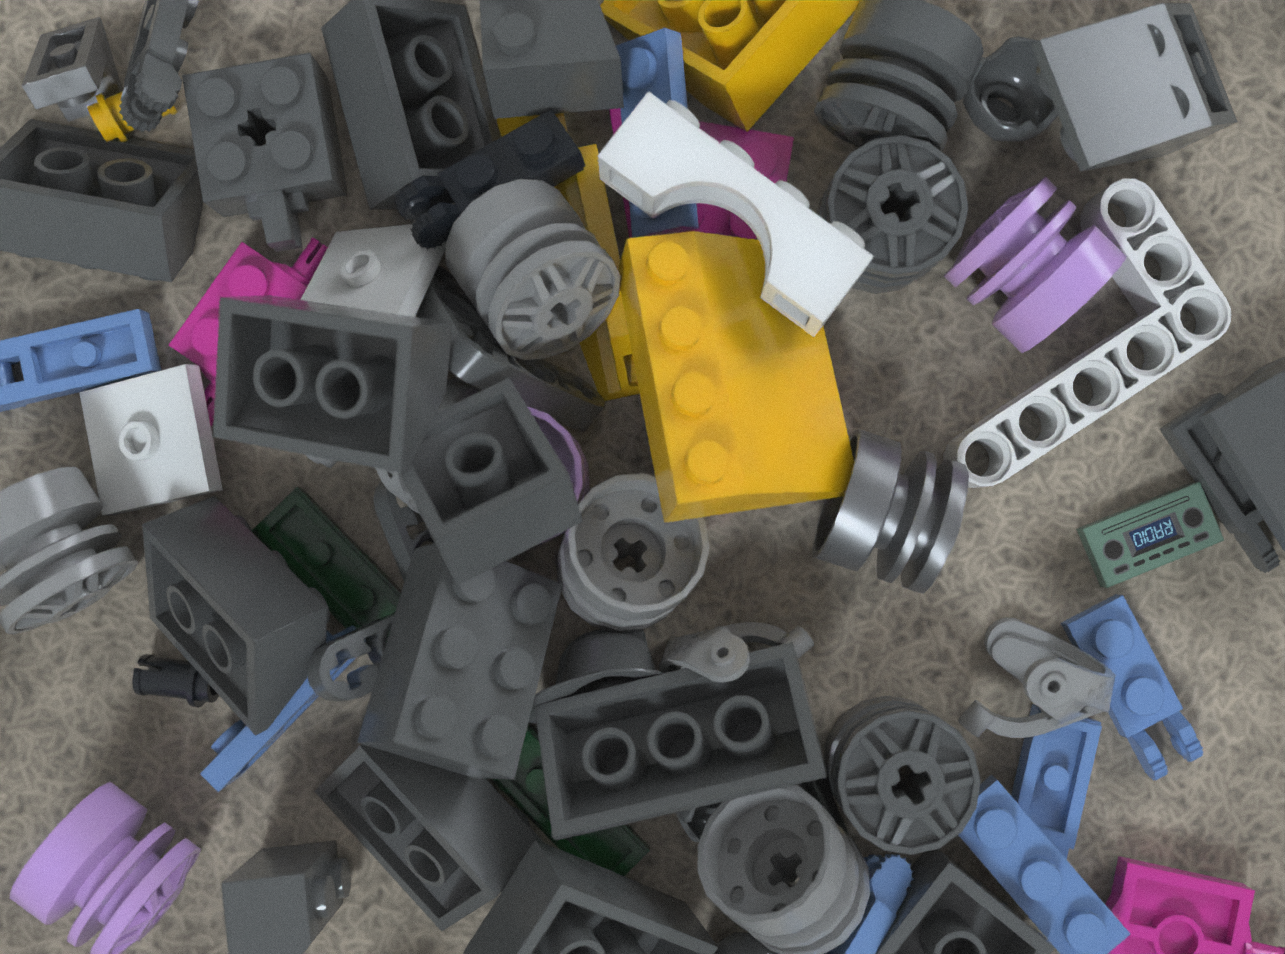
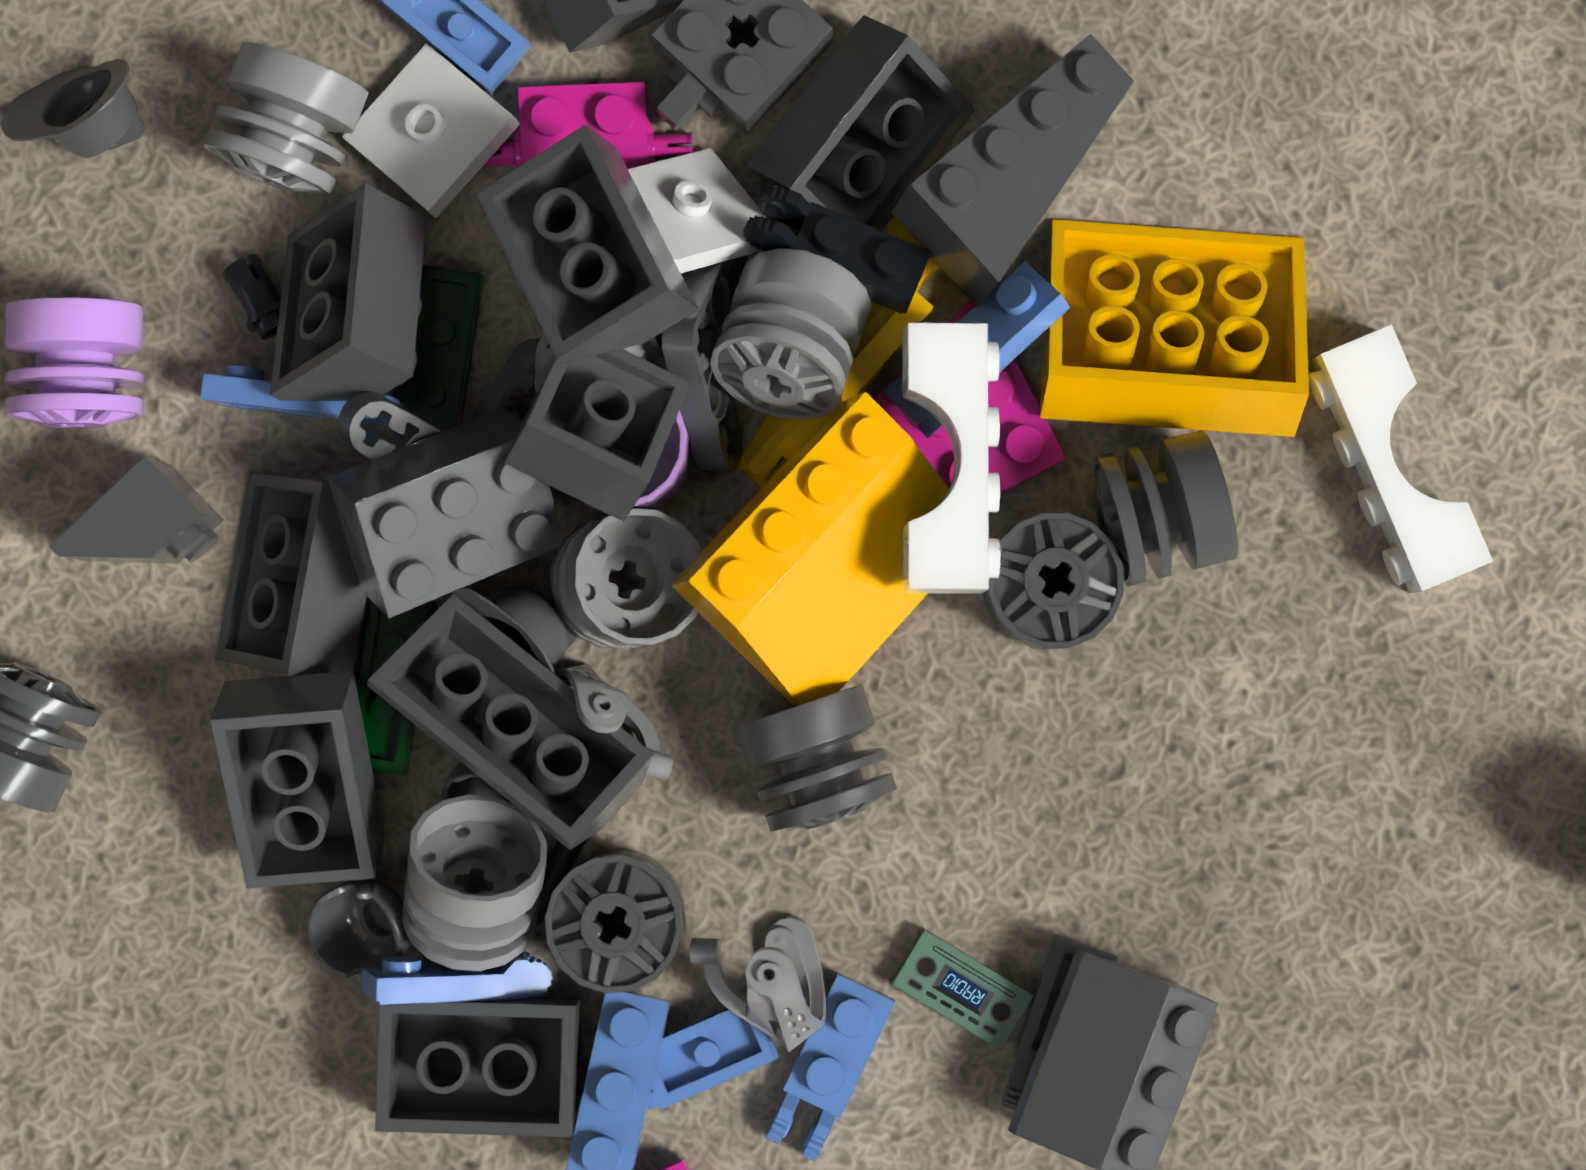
camera: 50 degrees right, 0 degrees up
(1011, 76) = (1258, 605): dark grey hair -> none
(1034, 265) = (1099, 724): lavender wheel -> none
(1106, 364) = (1072, 844): white beam -> none
(1133, 86) = (1297, 697): slope -> none

